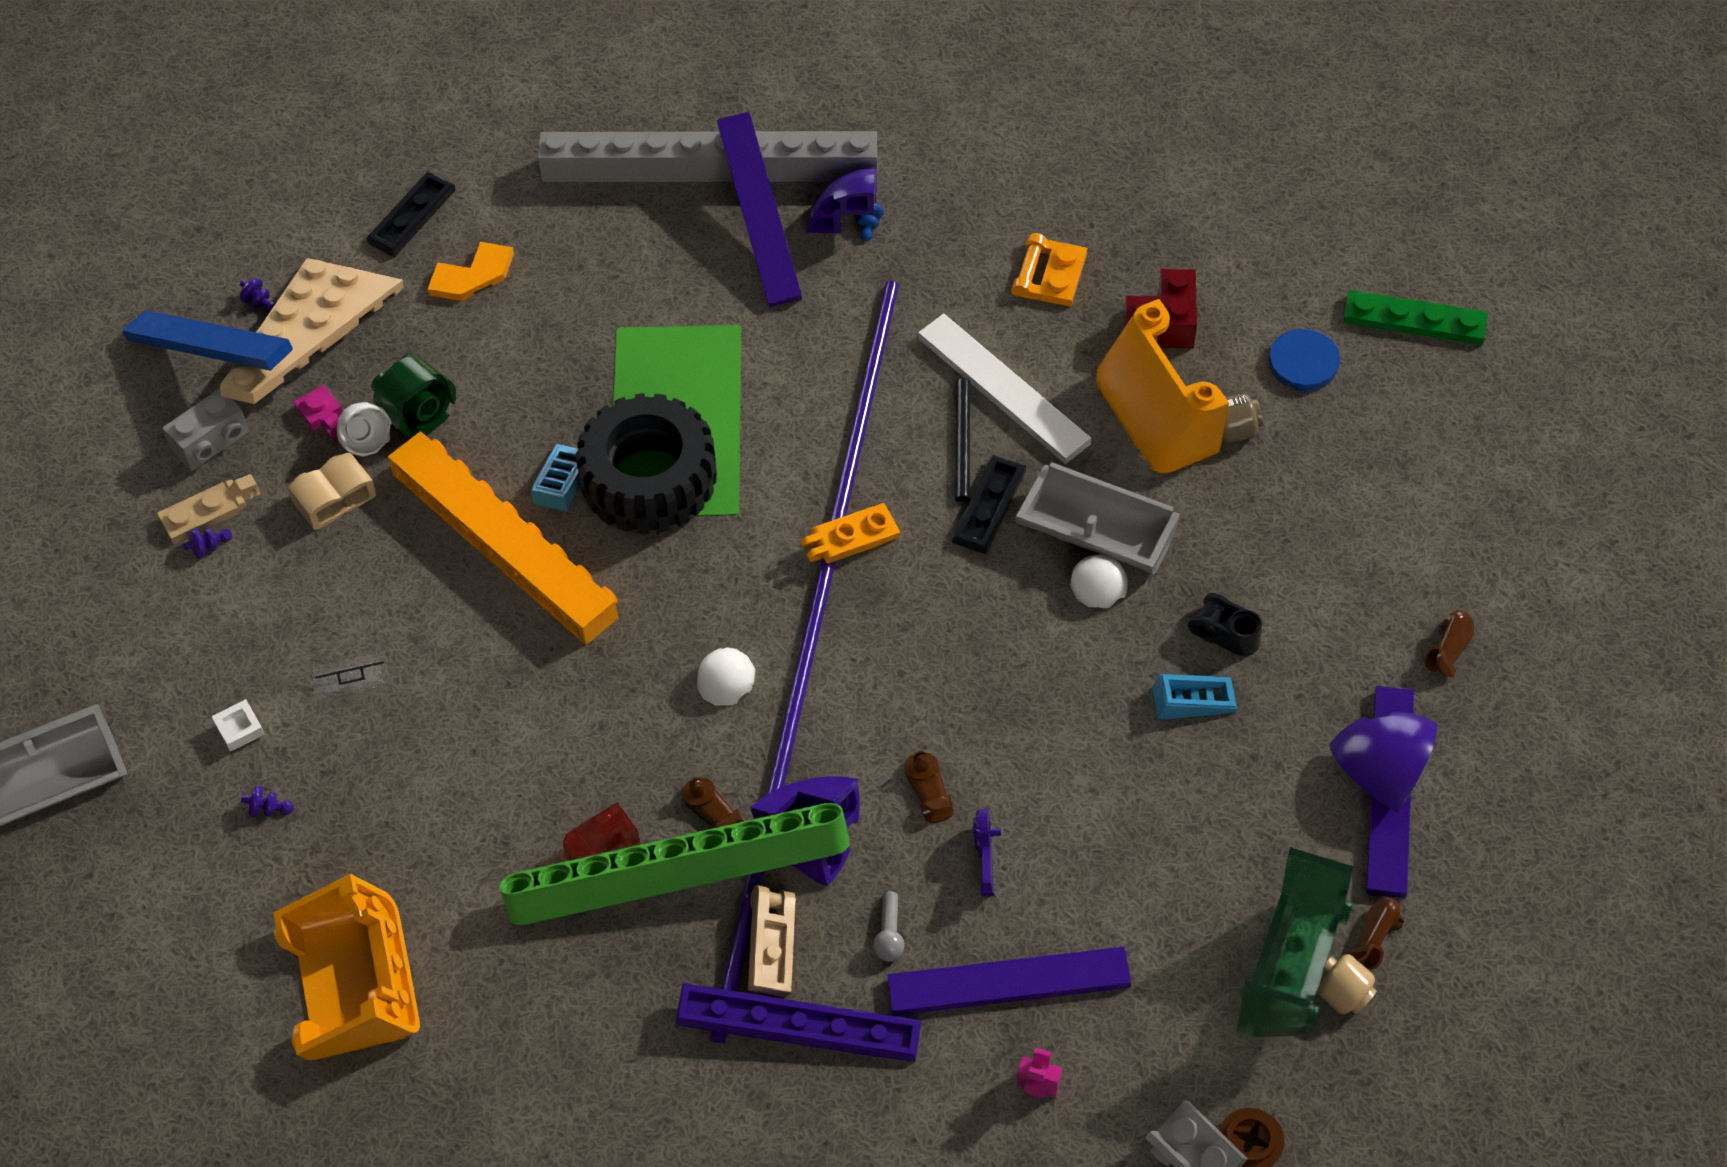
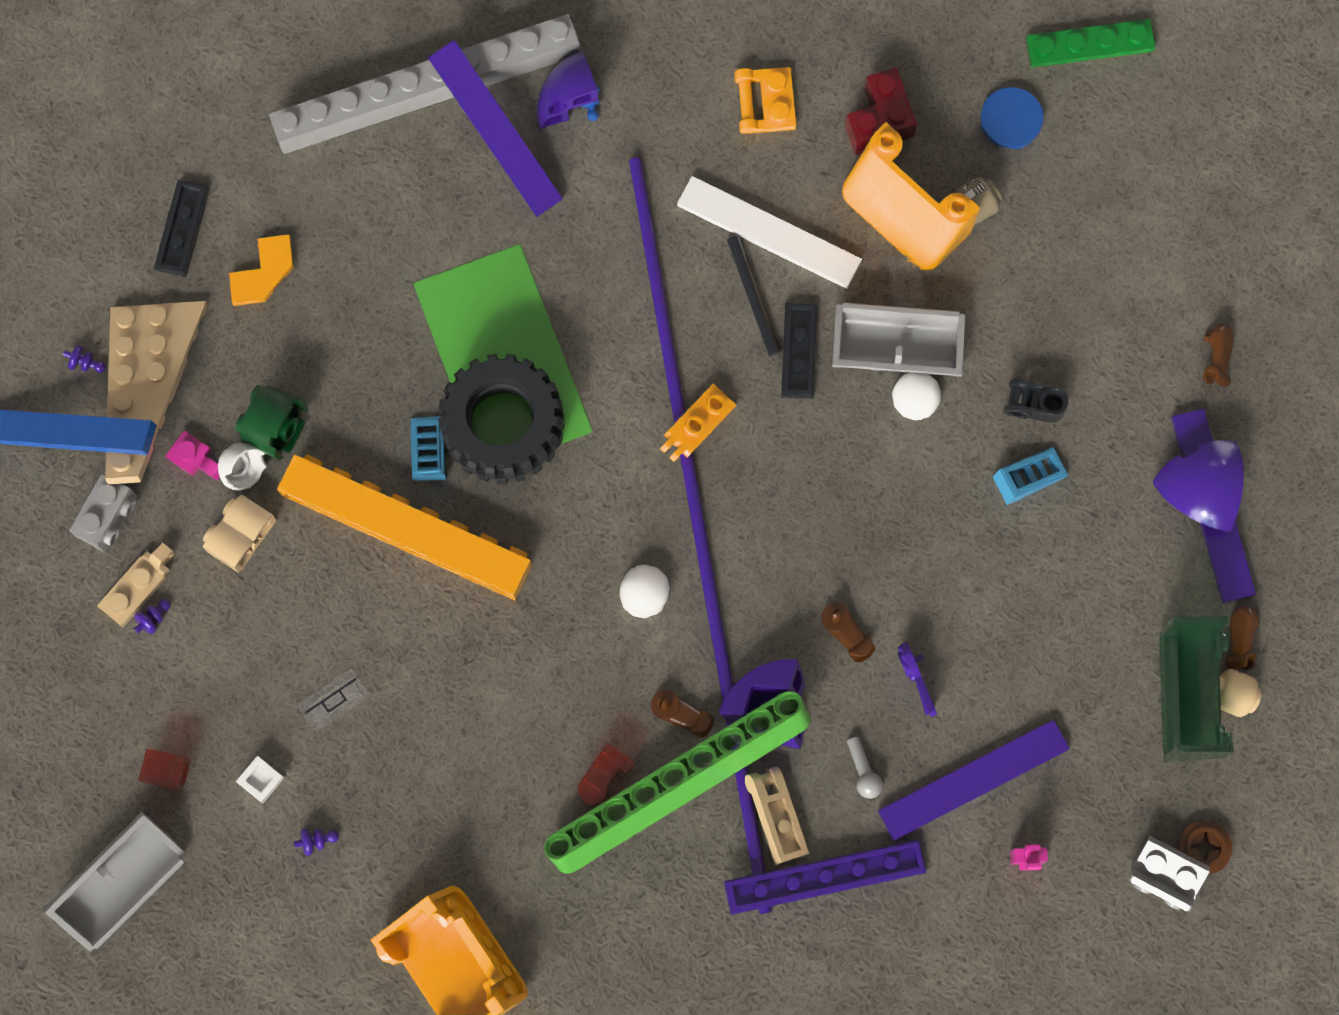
camera: 20 degrees left, 20 degrees up
(144, 683) = (164, 770): none -> clear red panel

